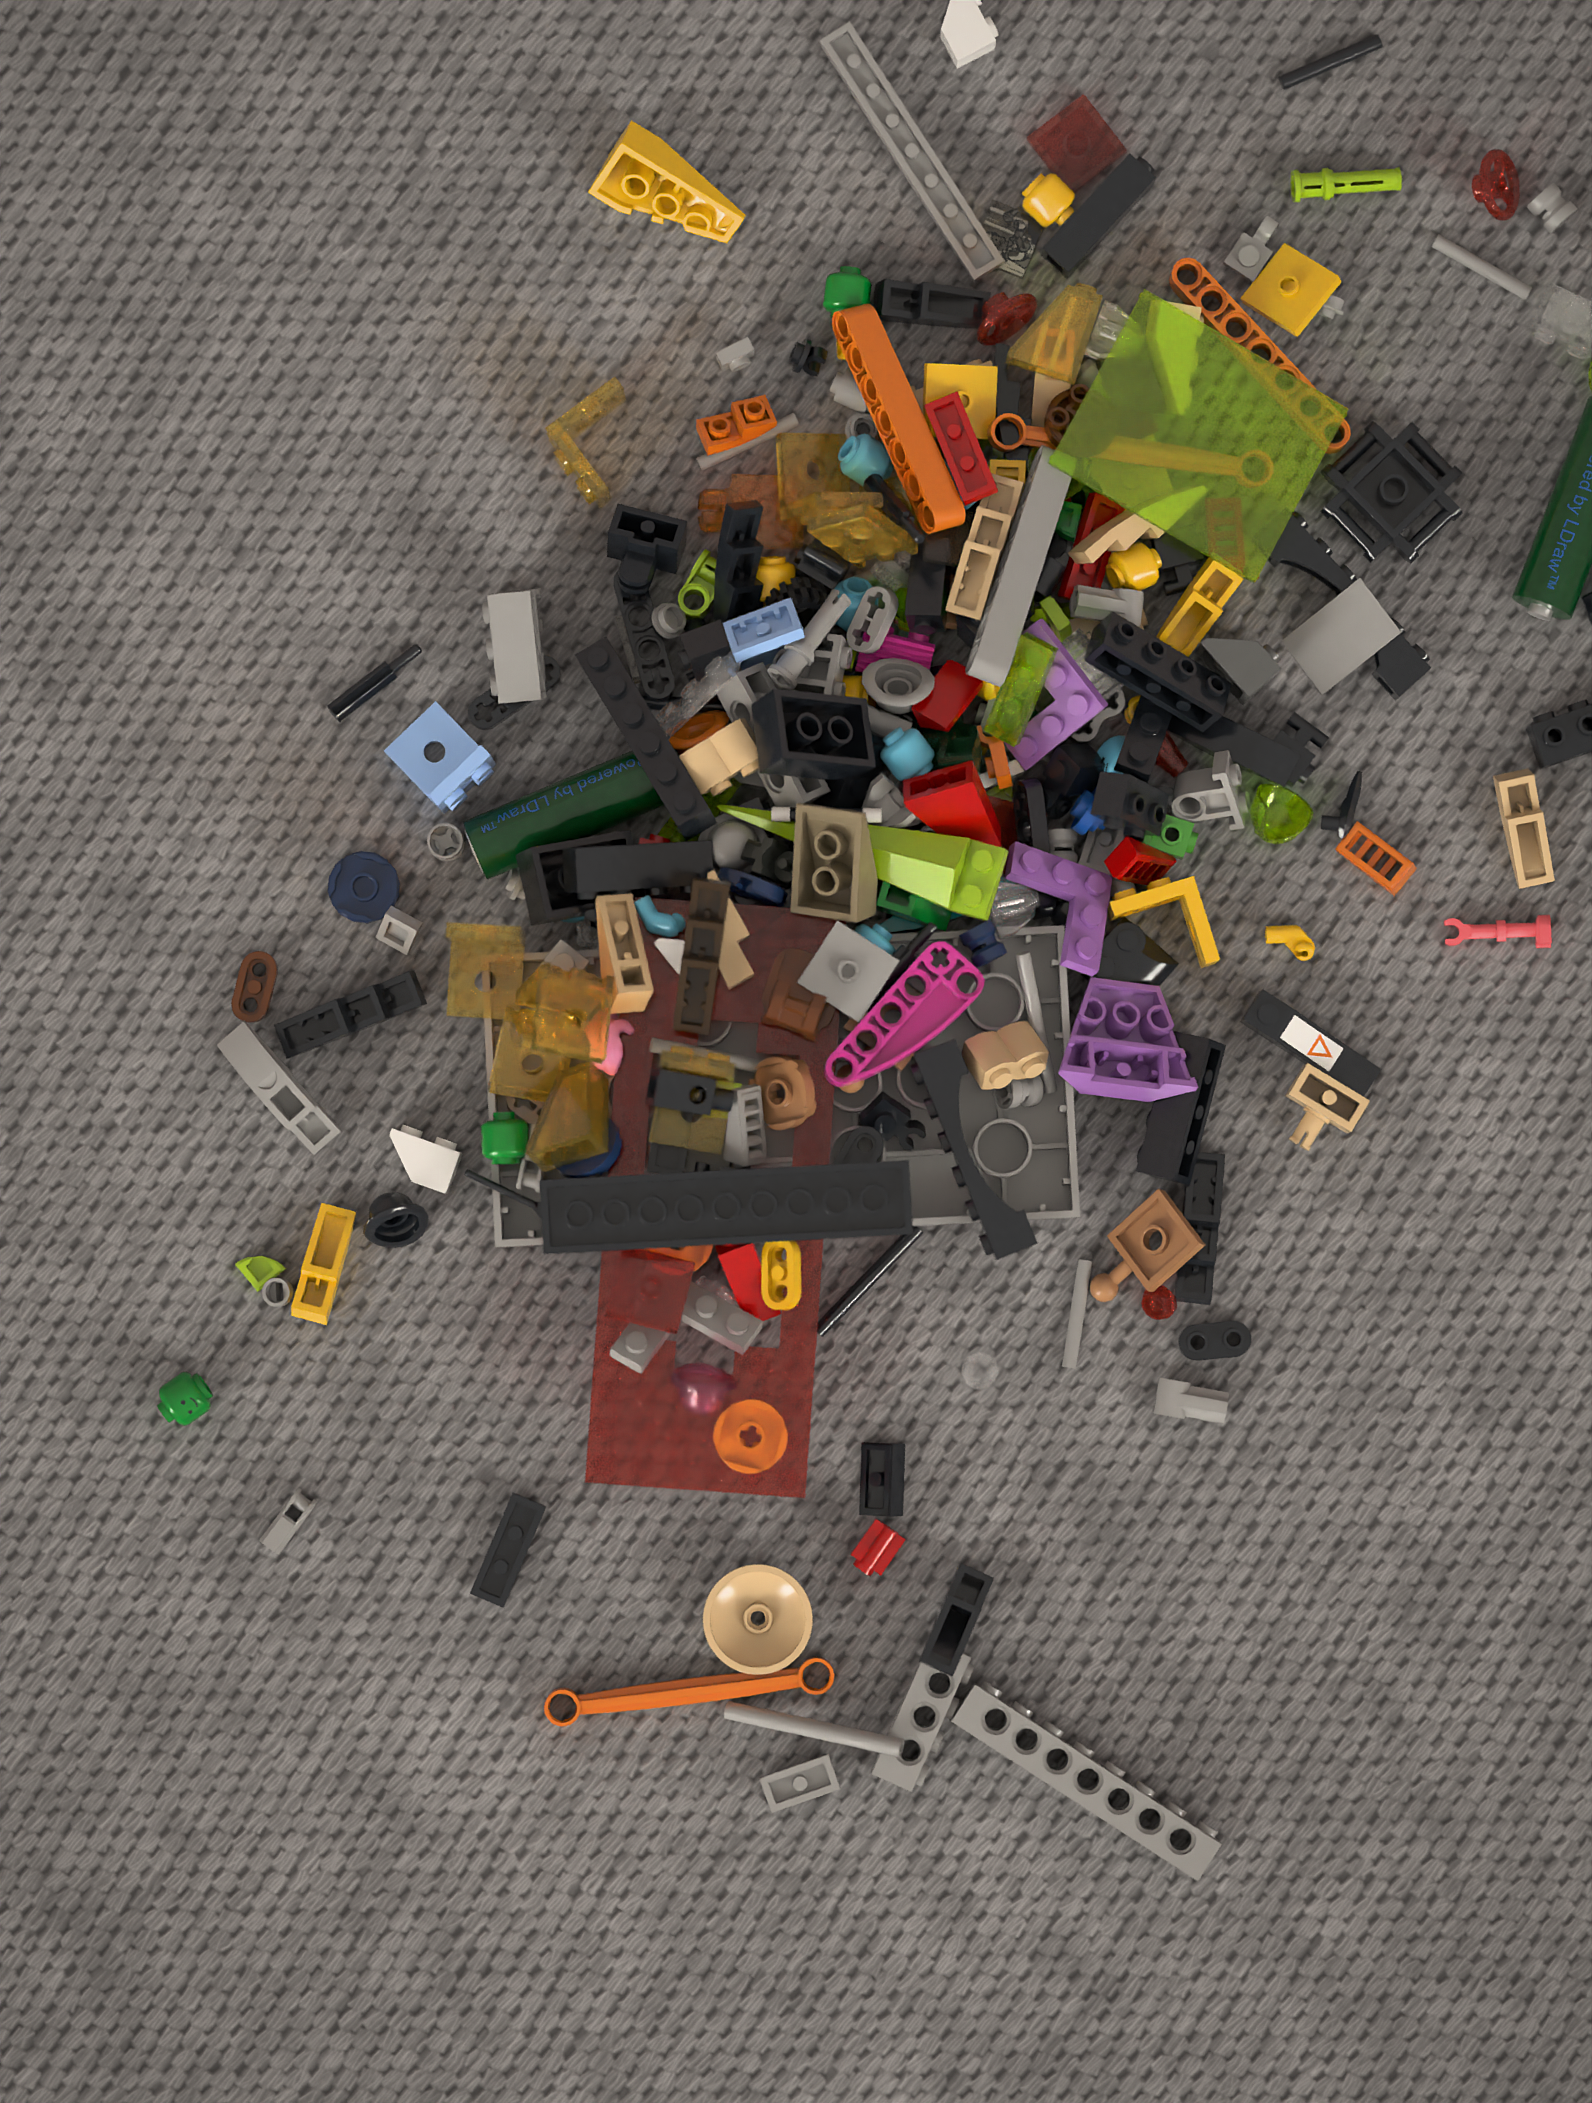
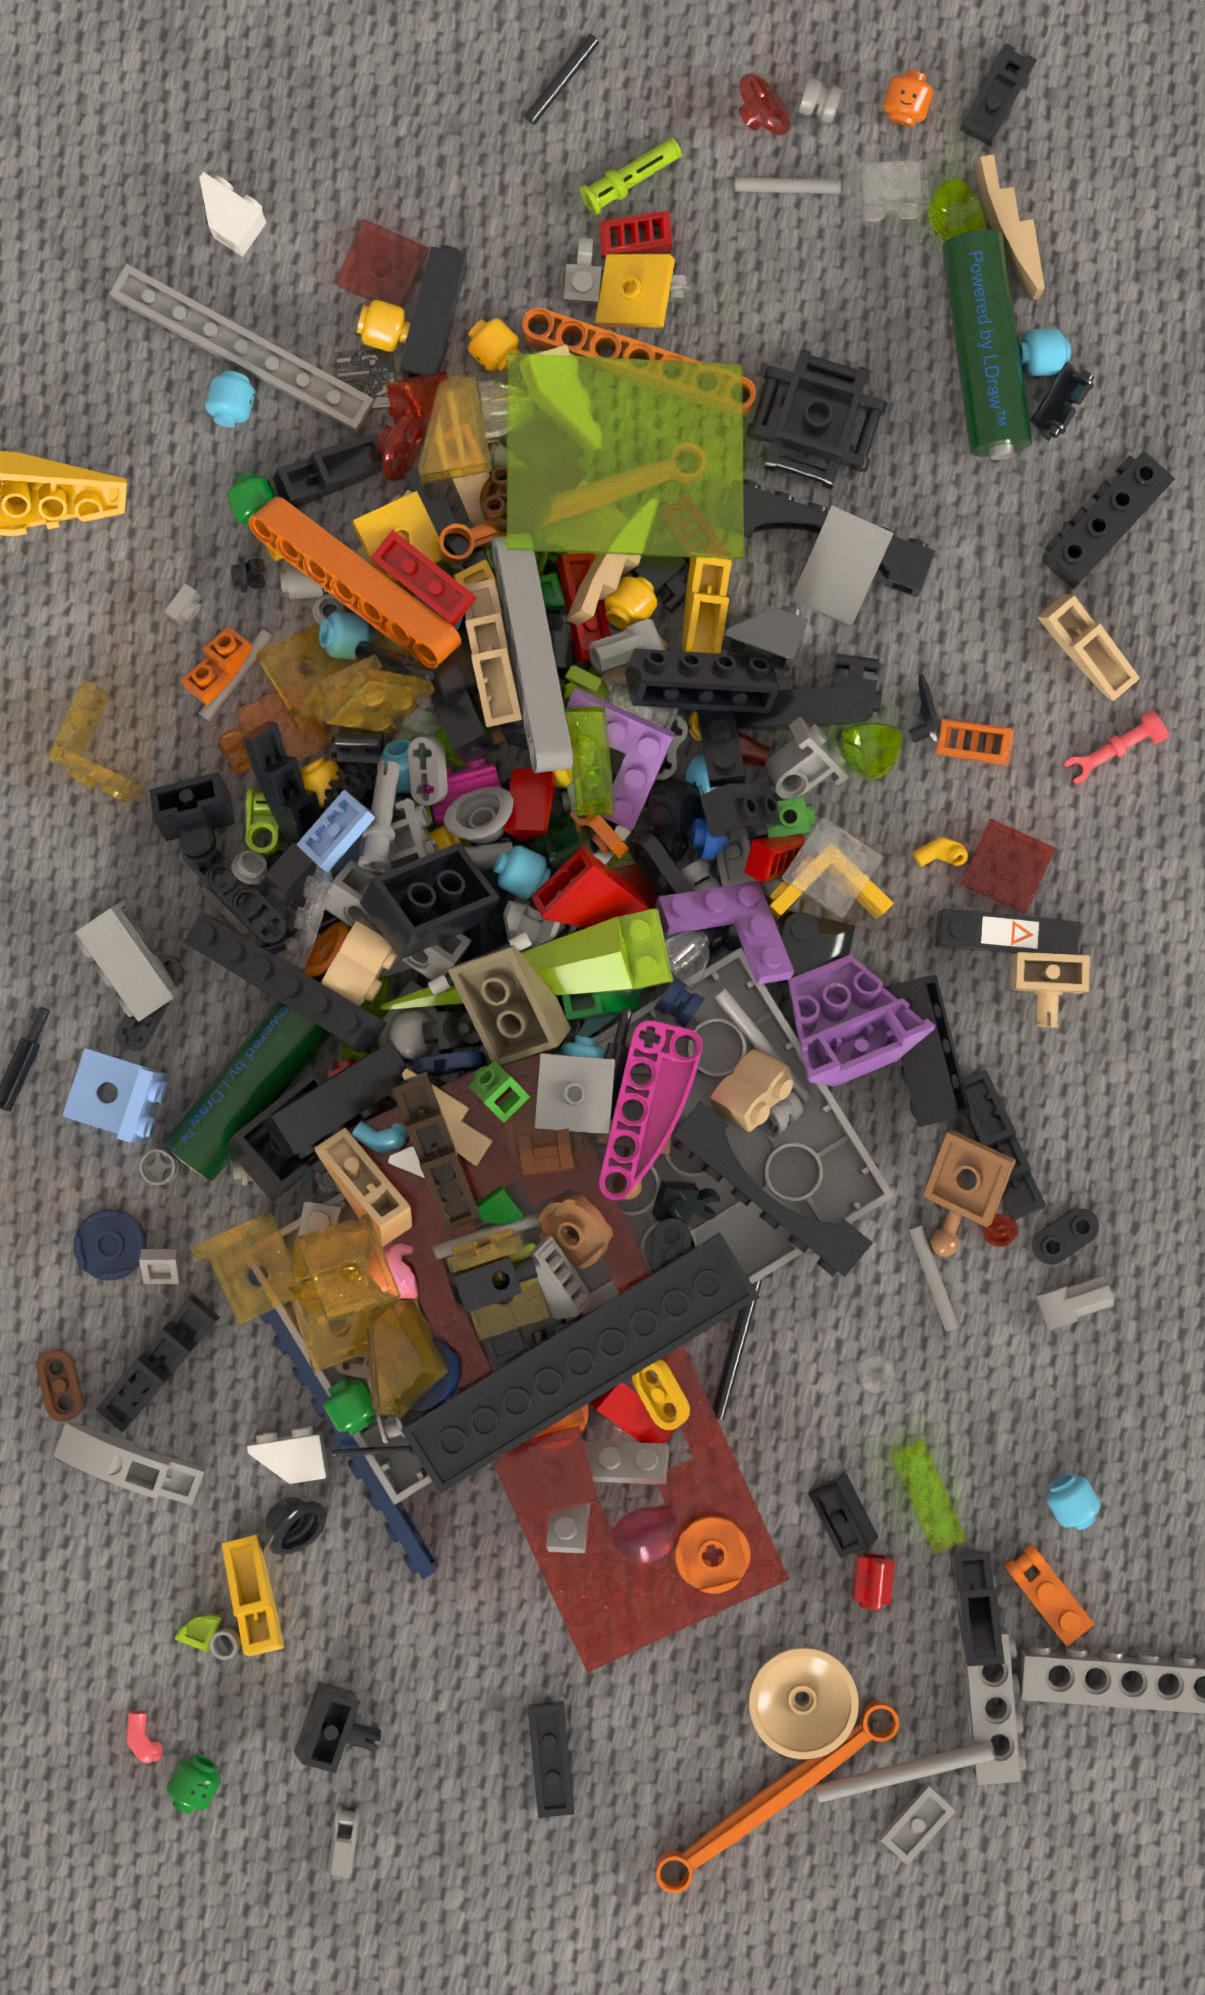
camera: 35 degrees left, 0 degrees up
(155, 1338) = (138, 1741): none -> coral arm
(332, 1414) = (332, 1726): none -> black brick
(486, 1271) = (399, 1524): none -> dark blue plate
(728, 1036) = (499, 1207): none -> green tile
(780, 923) = (491, 1083): none -> bright green brick
(876, 192) = (230, 398): none -> medium azure head
(966, 1502) = (928, 1496): none -> clear neon green plate
(1026, 1649) = (1050, 1596): none -> orange plate
(1042, 280) = (414, 396): none -> clear red piece
(1092, 1575) = (1073, 1501): none -> medium azure head
(1138, 269) = (492, 344): none -> yellow head
(1181, 898) = (832, 868): none -> clear plate
(1337, 232) = (646, 221): none -> red slope
(1343, 984) = (1007, 866): none -> clear red plate

